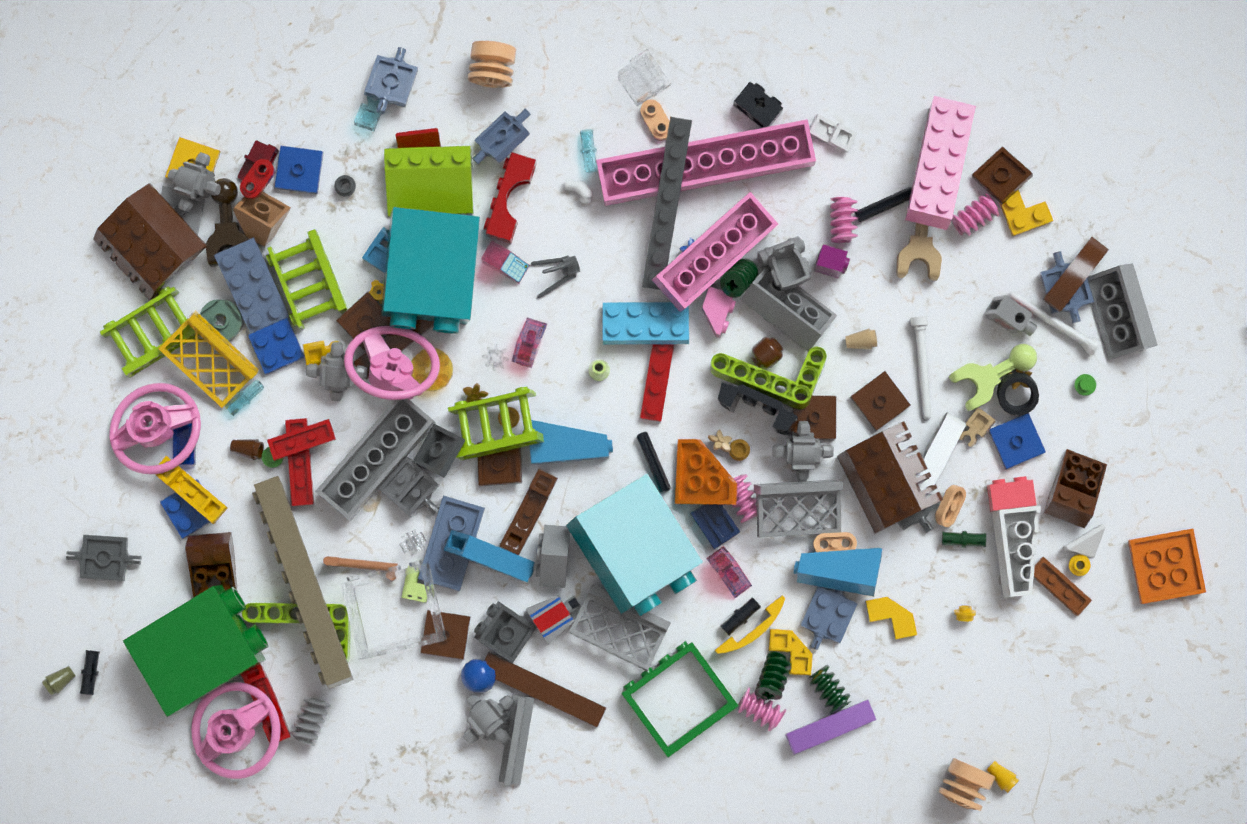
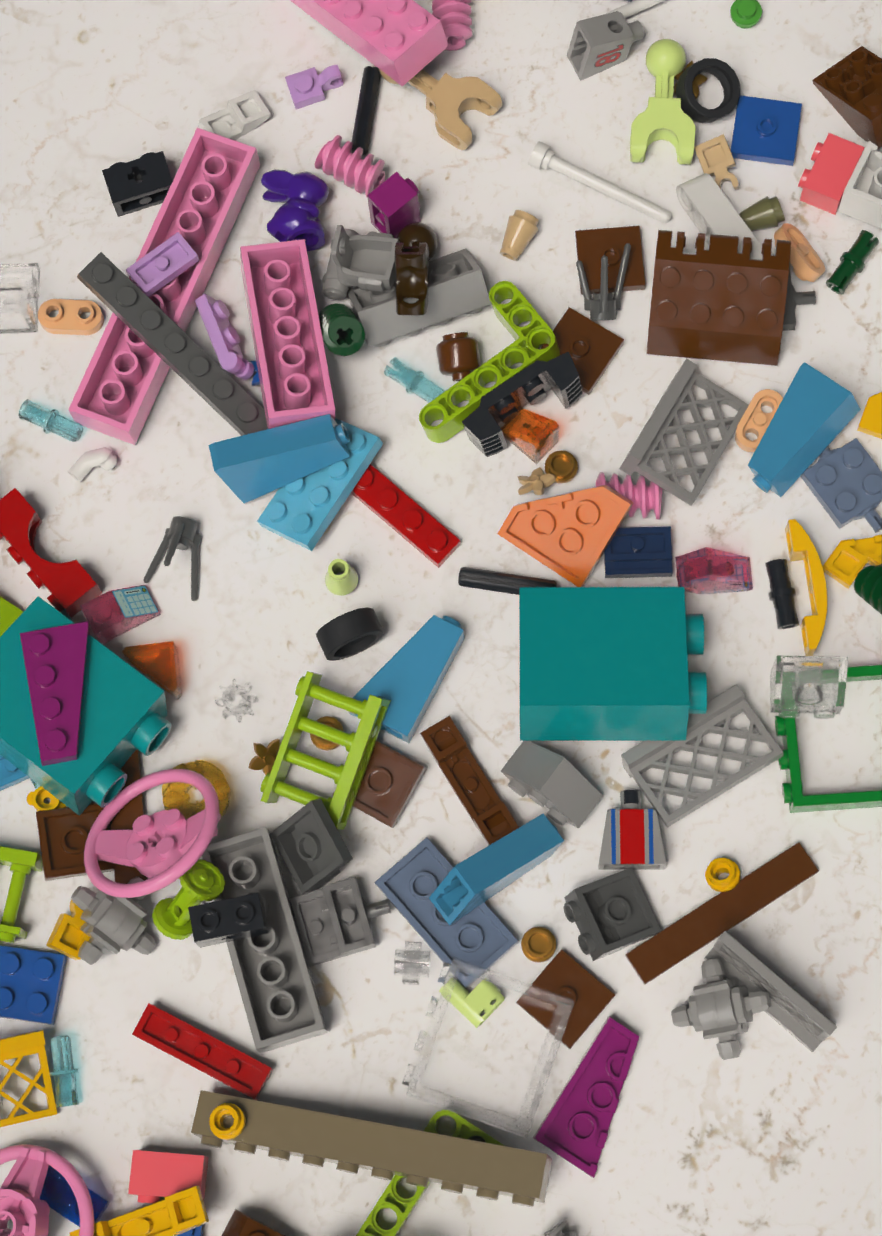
camera: 50 degrees left, 10 degrees down
(226, 485) = (165, 1174): none -> coral brick
(248, 448) = (136, 1112): reddish brown cone -> none
(268, 459) = (170, 1085): bright green plate -> none
(269, 494) = (218, 1116): none -> yellow plate
(301, 439) = (173, 1026): red plate -> none
(360, 403) = (198, 884): none -> lime hose
(361, 564) = (371, 1085): nougat hinge -> none
(370, 434) = (228, 920): none -> black brick
(399, 679) = (584, 1109): none -> magenta wing
(436, 260) = (55, 679): none -> magenta wing
(465, 602) = (538, 944): none -> pearl gold plate
(478, 676) = (650, 988): blue hair -> none
(488, 304) = (158, 663): none -> clear orange slope
(529, 342) = (246, 645): clear pink slope -> none
(563, 671) = (720, 866): none -> yellow plate
(568, 396) = (349, 634): none -> black tyre
(642, 292) = (279, 455): none -> dark azure slope
(688, 662) = (808, 685): none -> clear slope
(695, 215) = (223, 337): none -> lavender plate
(710, 156) = (162, 264): none -> lavender plate
(715, 309) = (361, 385): bright pink slope -> none
(737, 337) = (412, 380): none -> clear light blue axle
(747, 420) = (532, 434): none -> clear orange slope
(793, 210) = (300, 213): none -> dark purple animal
(797, 295) = (412, 258): none -> dark brown piece
(802, 451) = (614, 385): light grey piece -> none
(849, 413) = (604, 304): none -> dark grey plant
(879, 162) = (308, 87): none -> lavender plate
(960, 470) = (763, 214): none -> olive cone

